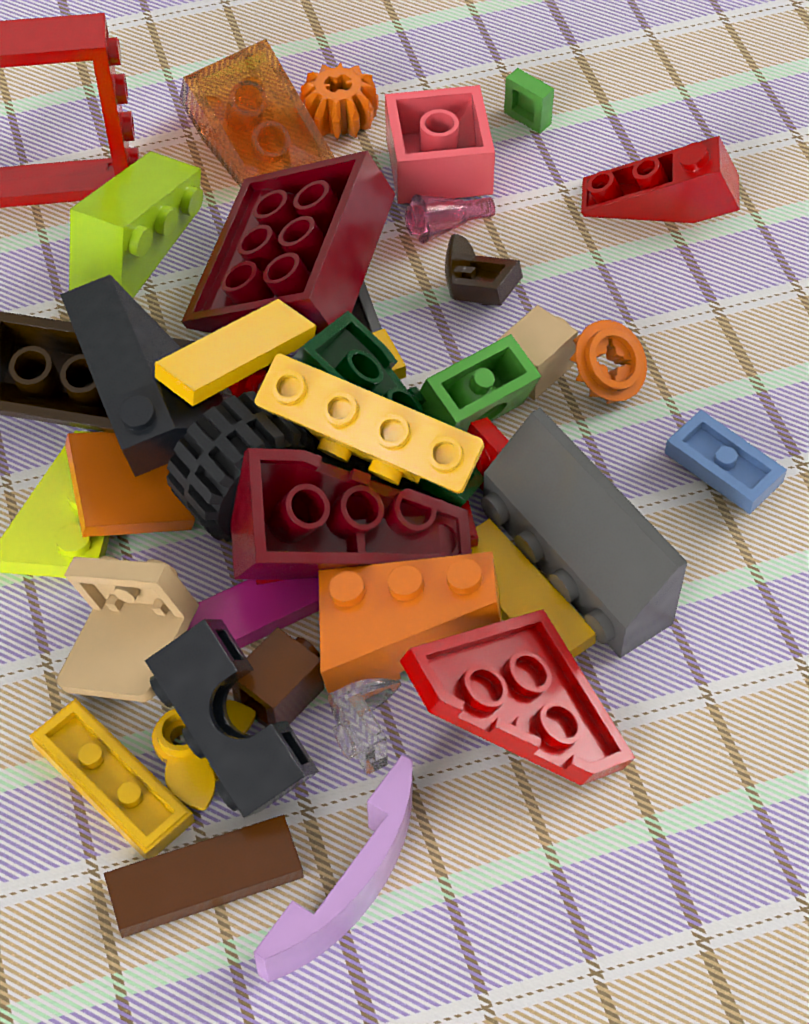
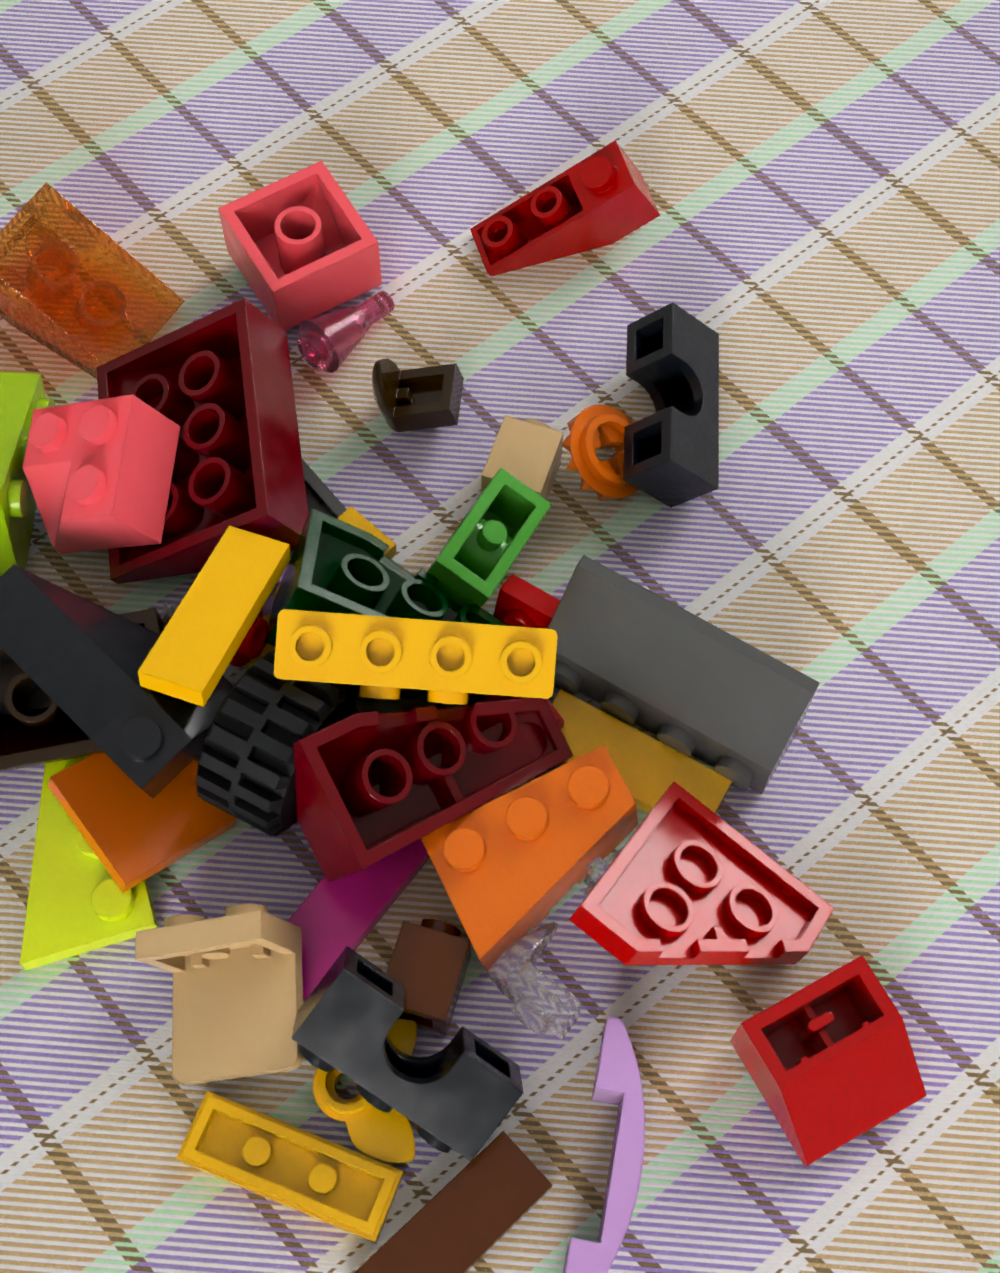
camera: 25 degrees left, 10 degrees up
(208, 240) = (101, 472): none -> coral slope
(340, 100) = (157, 223): orange gear -> none
(528, 100) = (372, 153): bright green plate -> none
(573, 862) = (831, 1060): none -> red slope
(669, 371) = (676, 448): none -> black arch
(725, 461) = (774, 525): medium blue plate -> none

